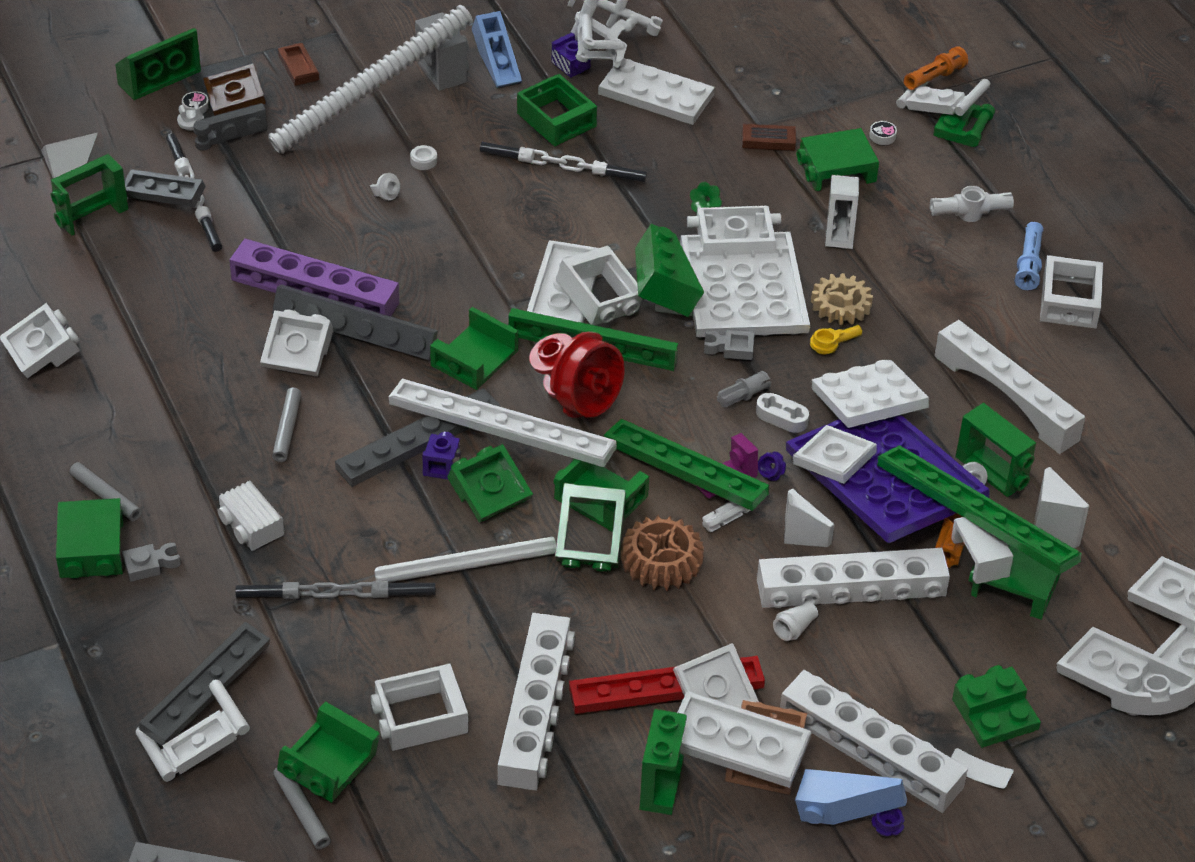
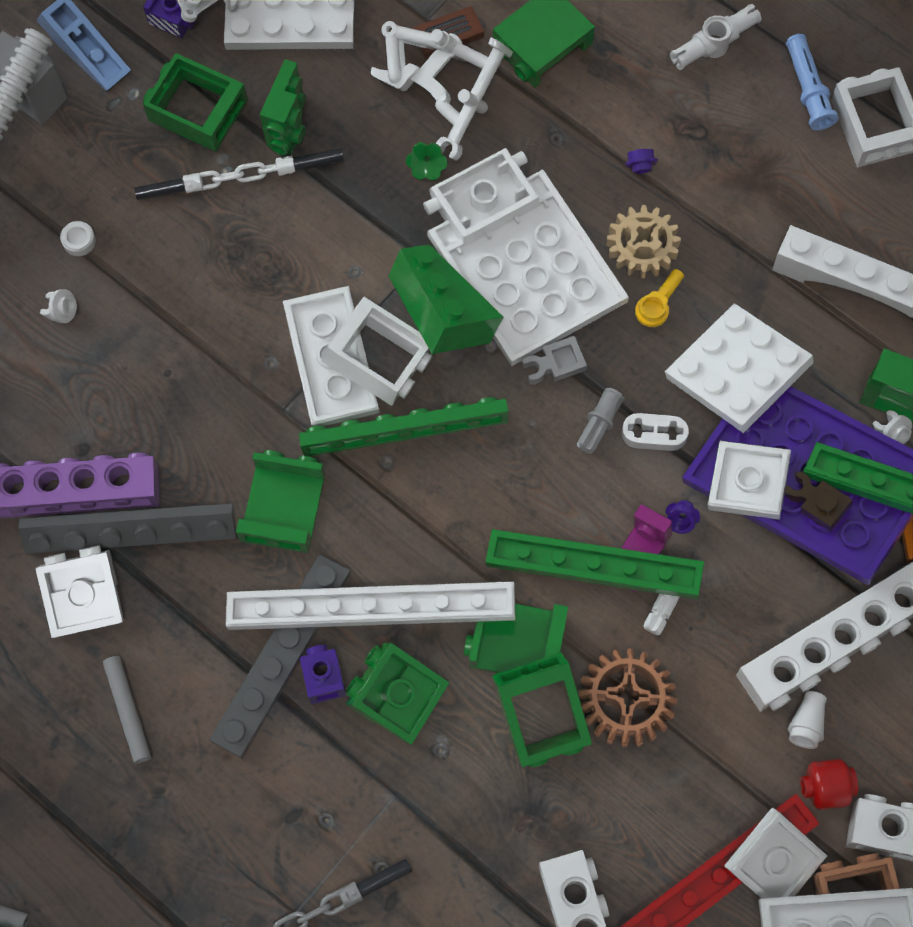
camera: 20 degrees left, 25 degrees up
(250, 516) = (157, 867): white brick -> none
(466, 560) = (421, 809): white axle -> none
(579, 372) = (426, 502): red piece -> none
(617, 129) = (283, 111): none -> green plate
(755, 132) = (446, 47): none -> white piece
(786, 660) = (829, 784): none -> red head
(805, 523) = (753, 582): white slope -> none
(842, 211) = (584, 111): white slope -> none
(870, 254) = (641, 160): none -> dark purple plate
(880, 481) = (821, 504): none -> dark brown plate

